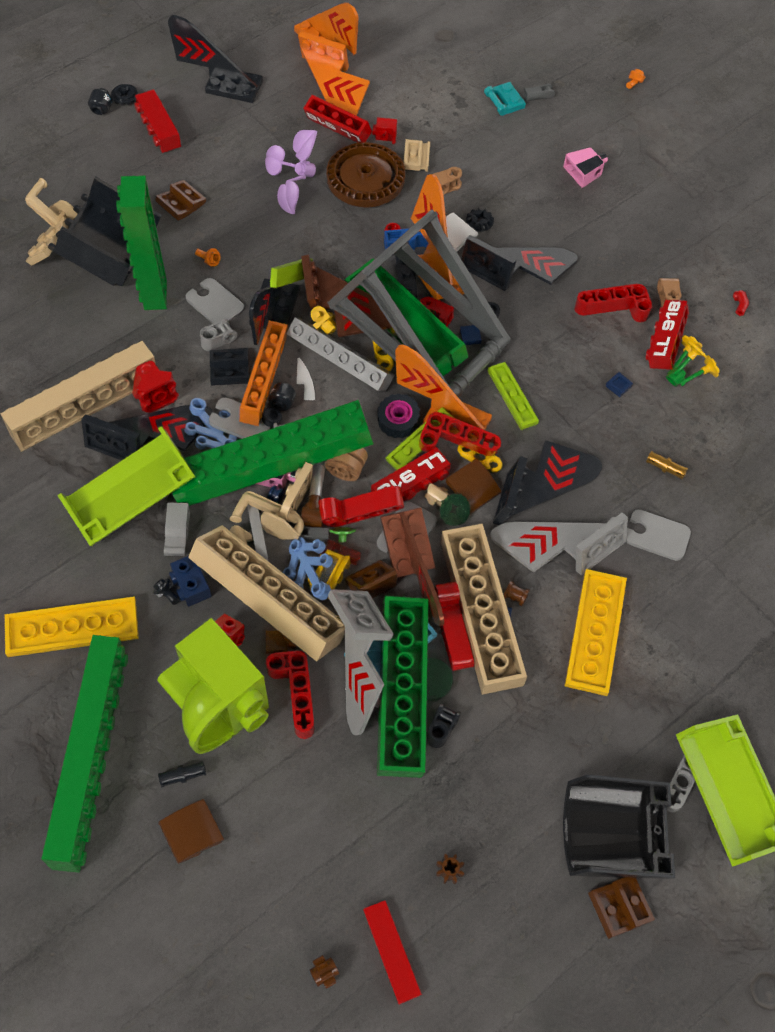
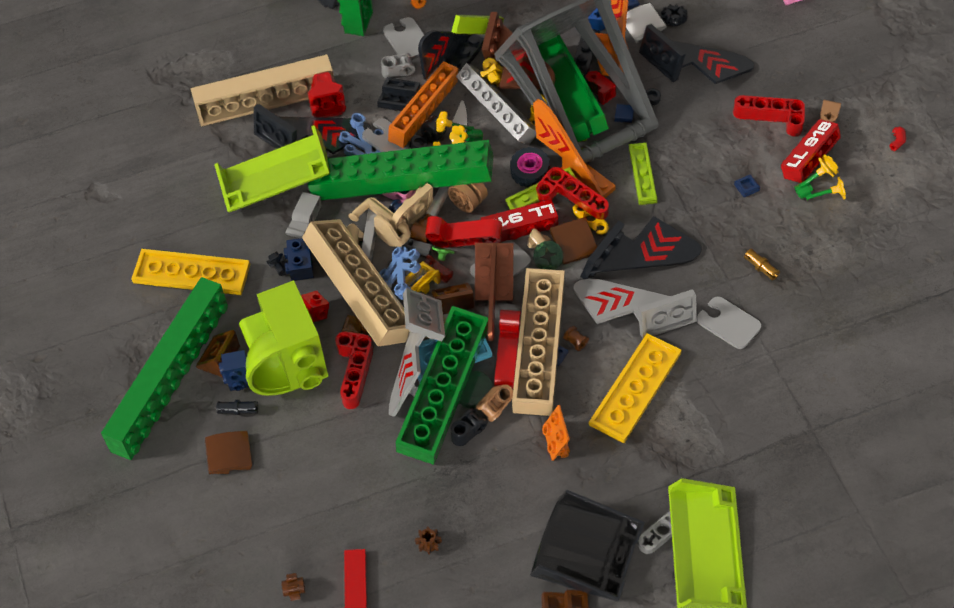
camera: 25 degrees right, 5 degrees down
(137, 715) = (219, 344): none -> reddish brown slope
(168, 733) = (234, 370): none -> dark blue brick
(318, 398) = (458, 132): none -> yellow plant
(462, 687) = (493, 404): none -> medium nougat piece
(540, 707) = (556, 434): none -> orange hinge

